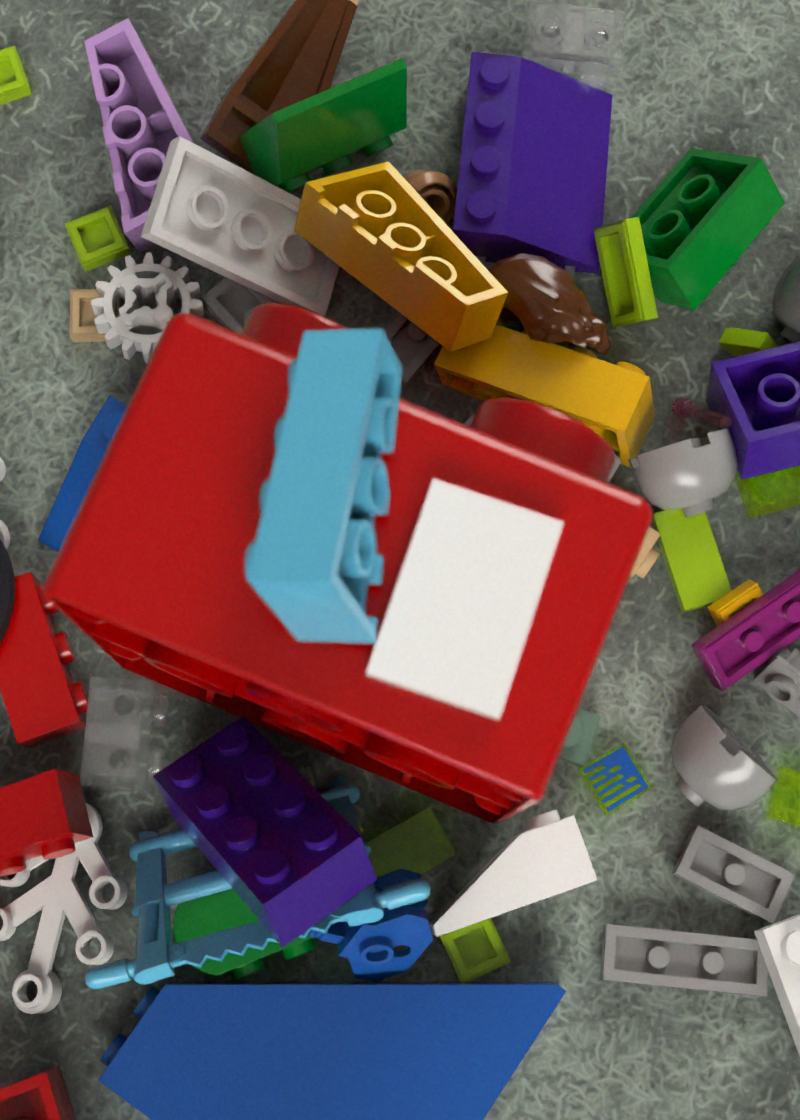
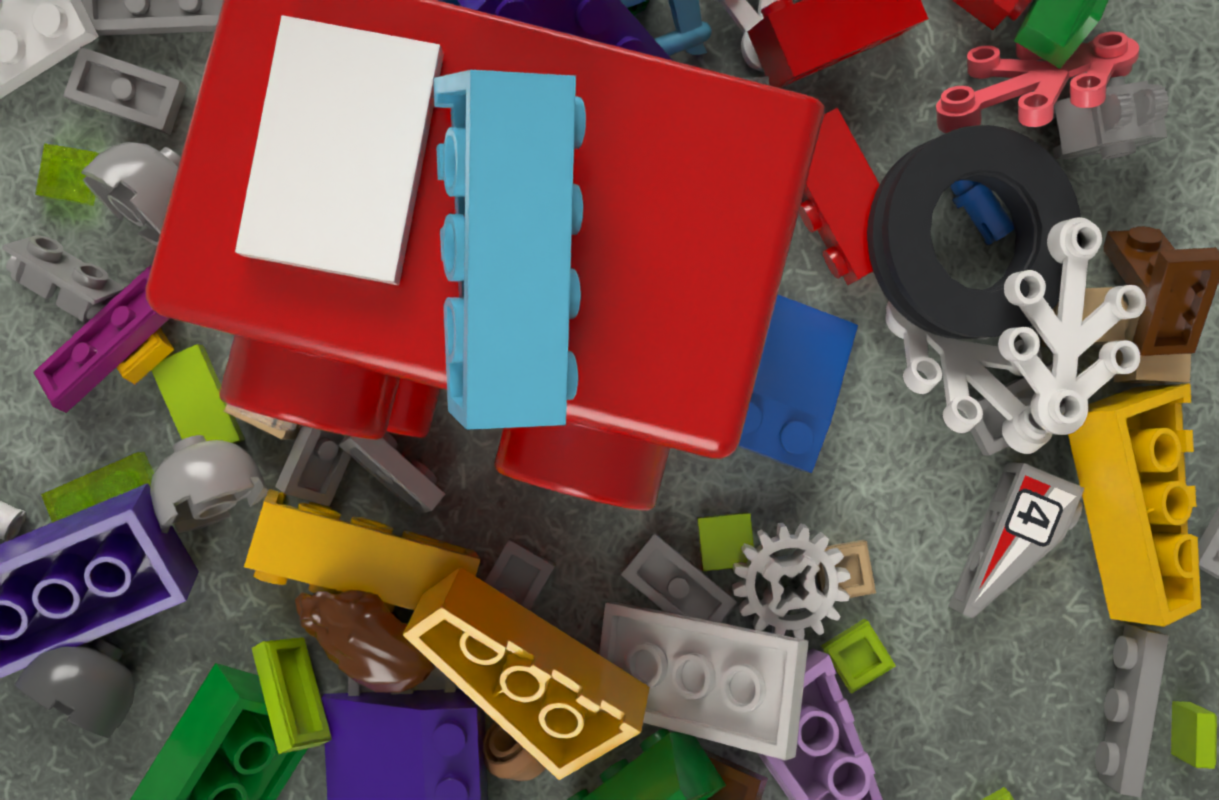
camera: 175 degrees right, 10 degrees up
(684, 408) = (219, 559): clear pink piece -> none
(744, 341) = (155, 636): lime tile -> none

